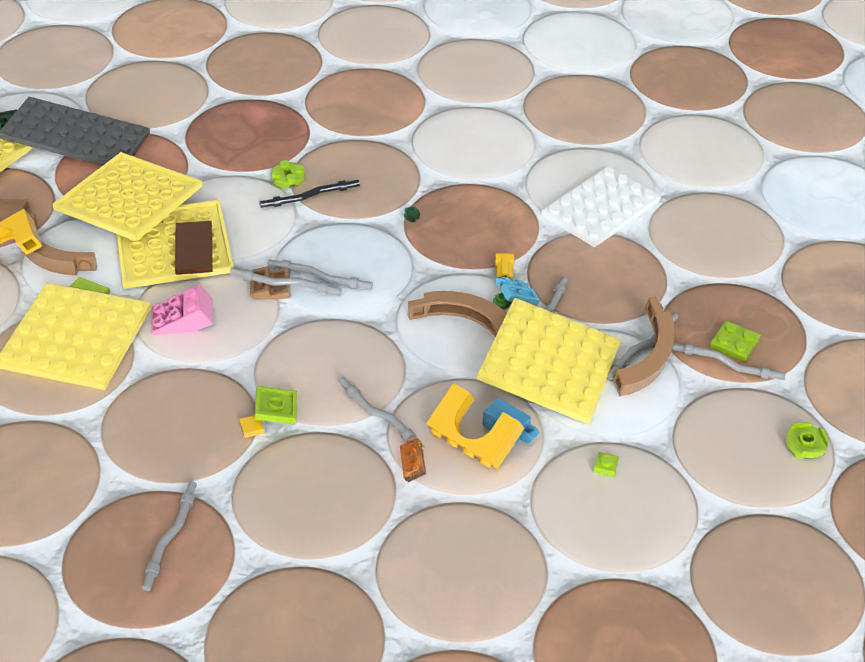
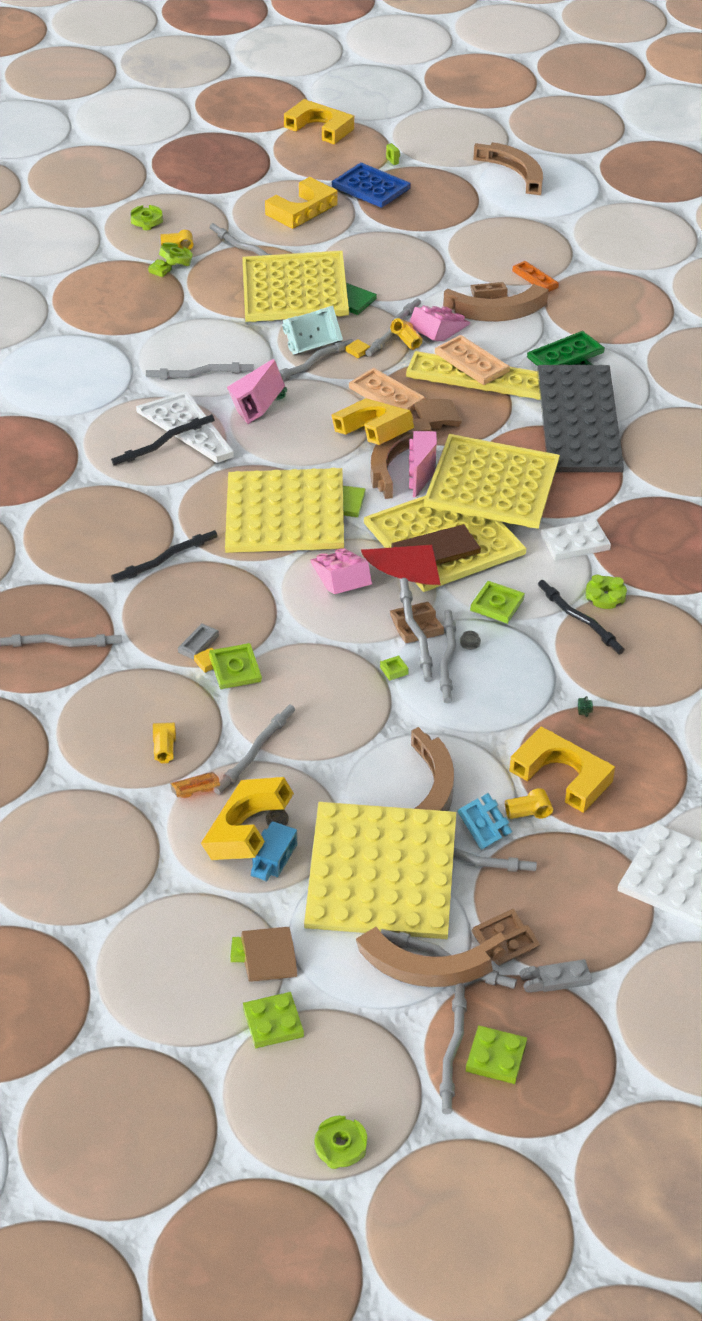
camera: 75 degrees right, 0 degrees up
(76, 229) = (421, 459): none -> bright pink slope
(98, 459) = (132, 571): none -> black bar
(206, 266) = (408, 562): none -> red sticker
(218, 175) = (575, 539): none -> white plate
(223, 429) = (198, 641): none -> light grey tile
(271, 231) = (497, 601): none -> lime plate
(308, 257) = (470, 640): none -> clear smoke plate
(321, 307) = (394, 667): none -> lime plate
(342, 471) = (163, 738): none -> yellow piece
(470, 416) = (277, 816): none -> clear smoke plate
(483, 226) = (547, 748): none -> yellow arch
(619, 445) = (269, 954): none -> medium nougat slope
(627, 311) = (518, 937): none -> medium nougat slope
(670, 292) = (556, 976): none -> light grey hinge
(682, 459) = (273, 1020): none -> lime plate

